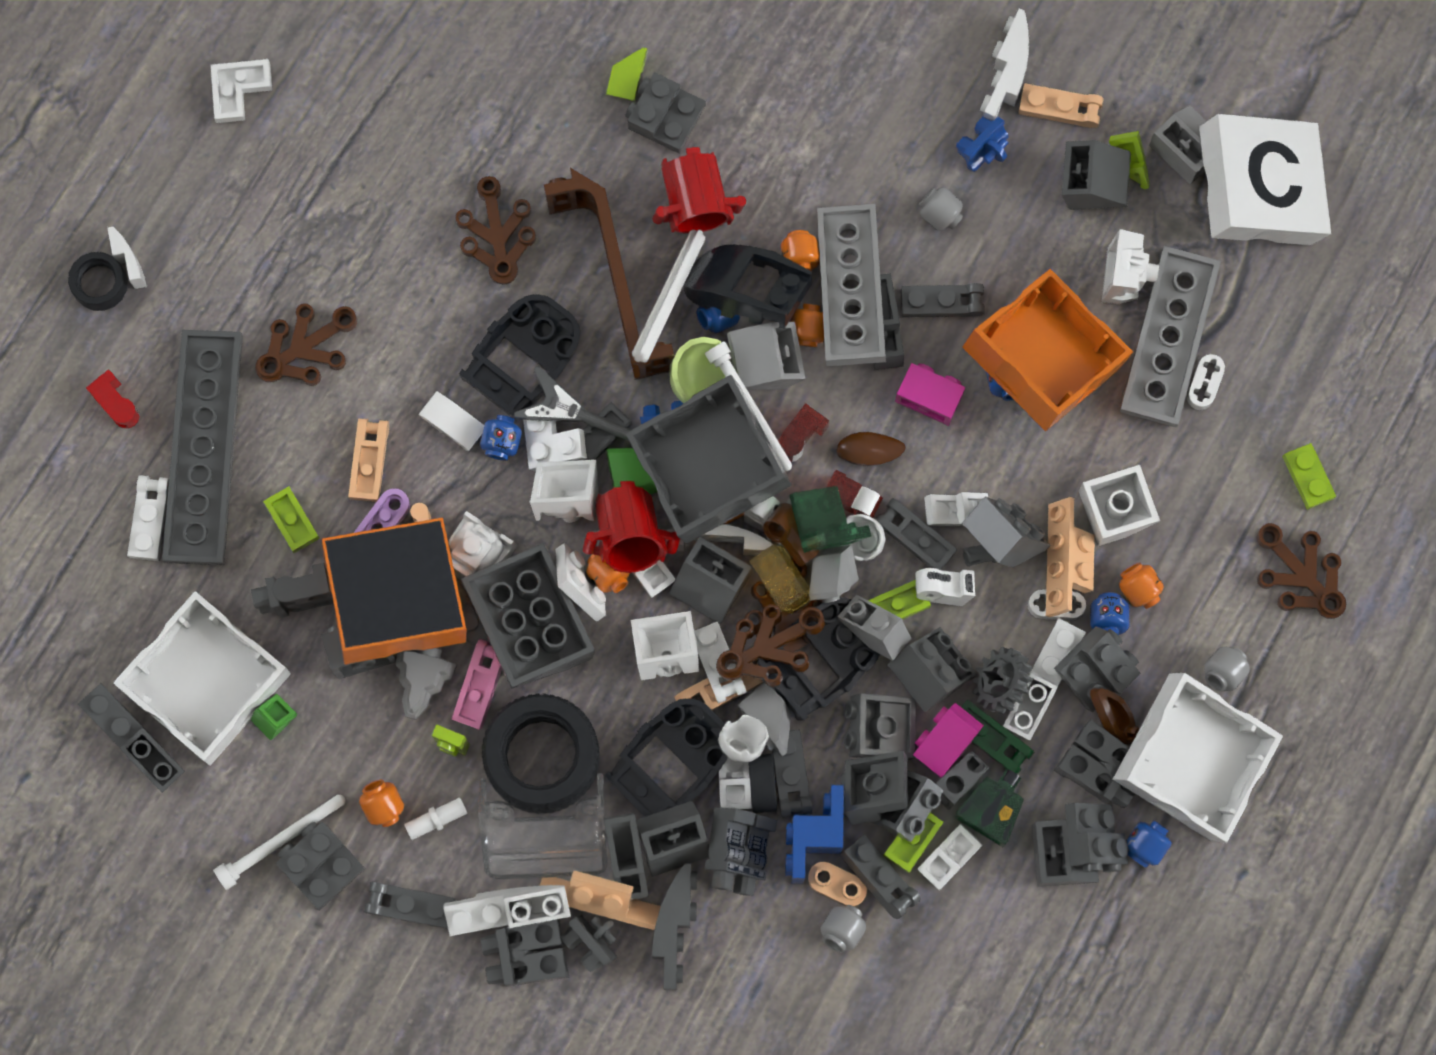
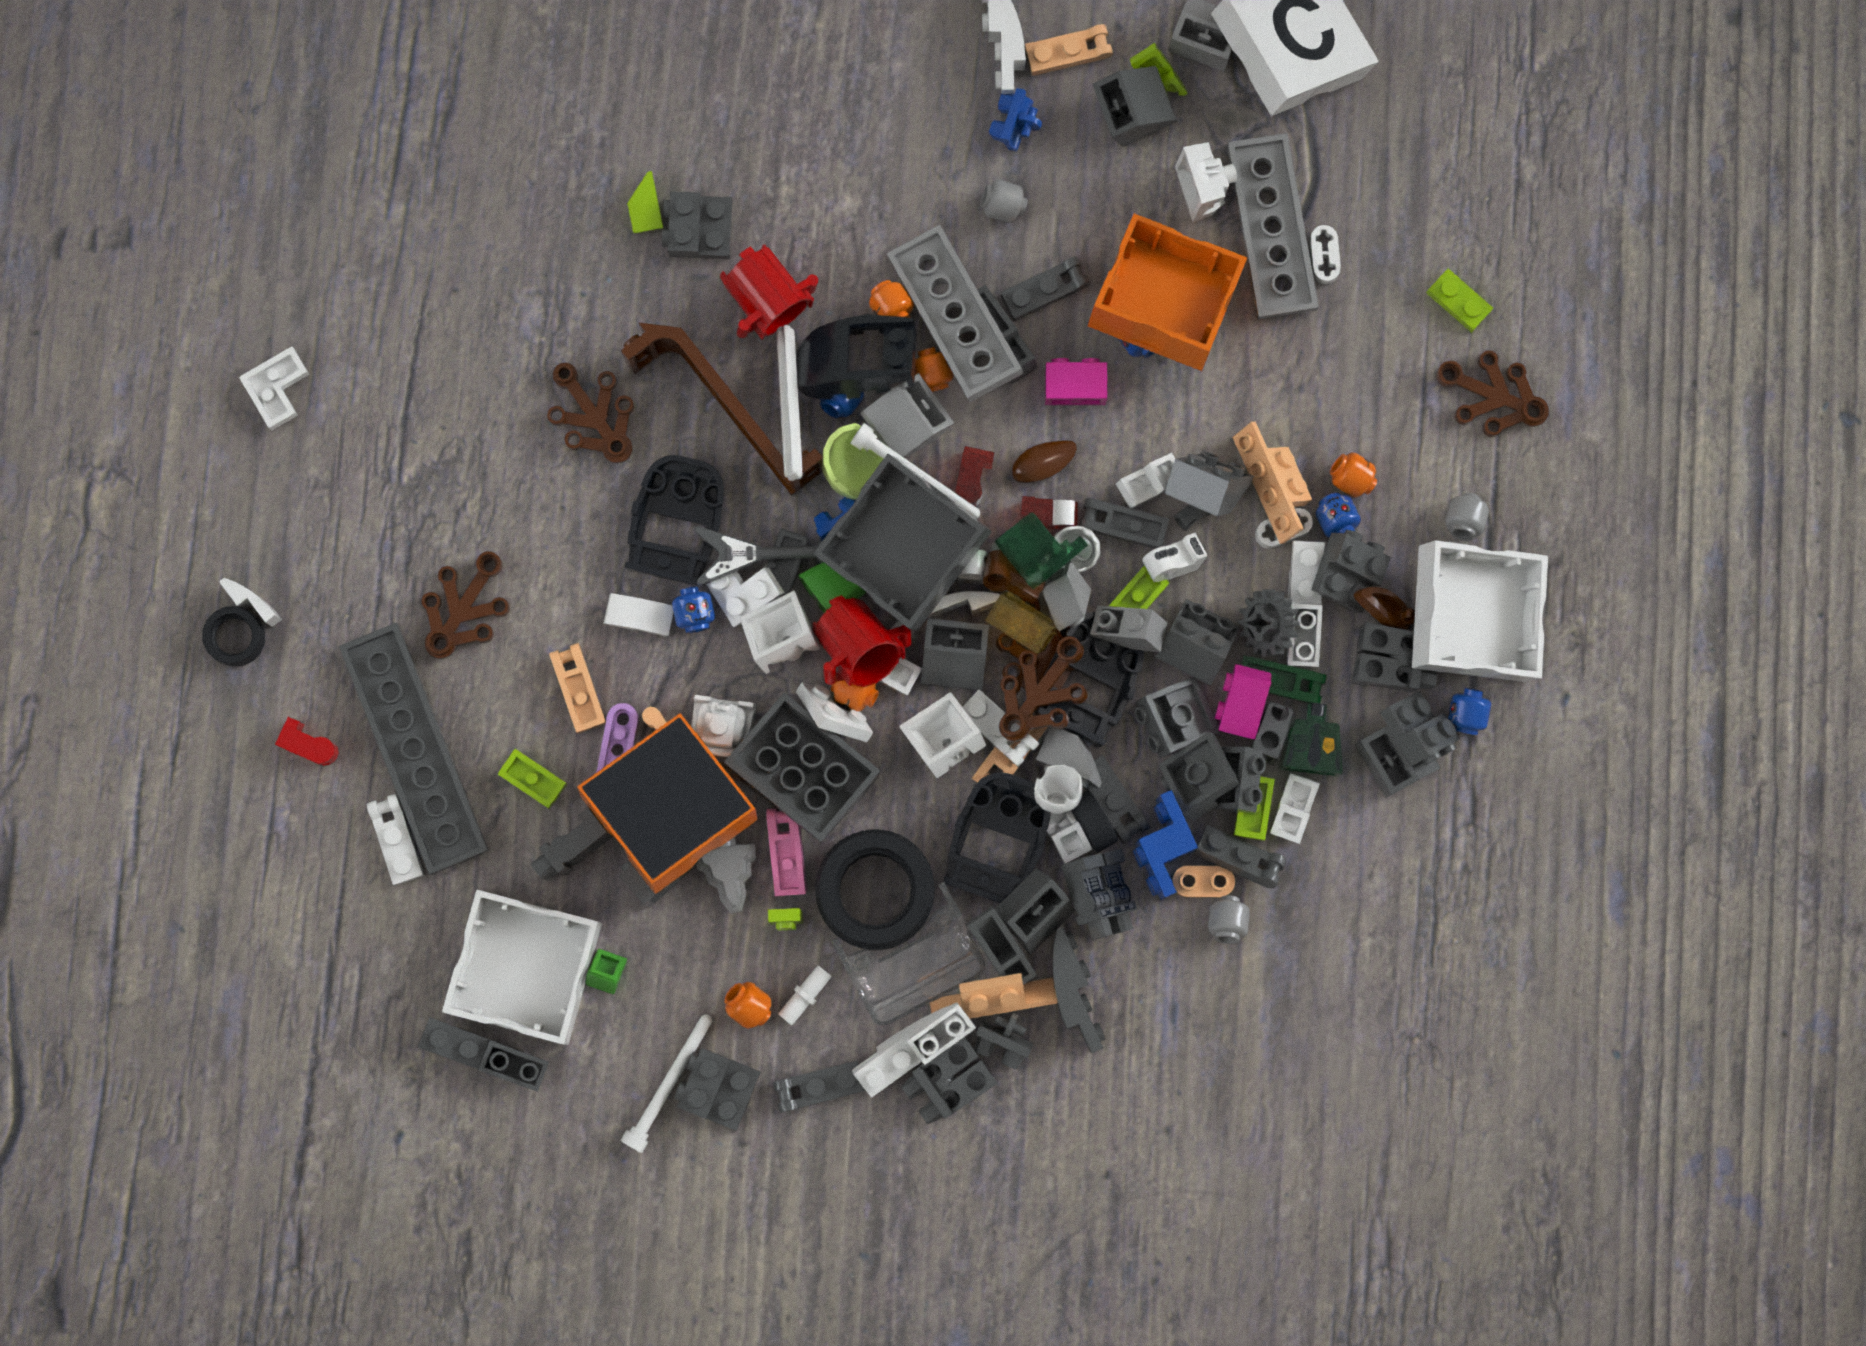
camera: 25 degrees left, 5 degrees up
(1118, 505) = (1299, 409): white slope -> none

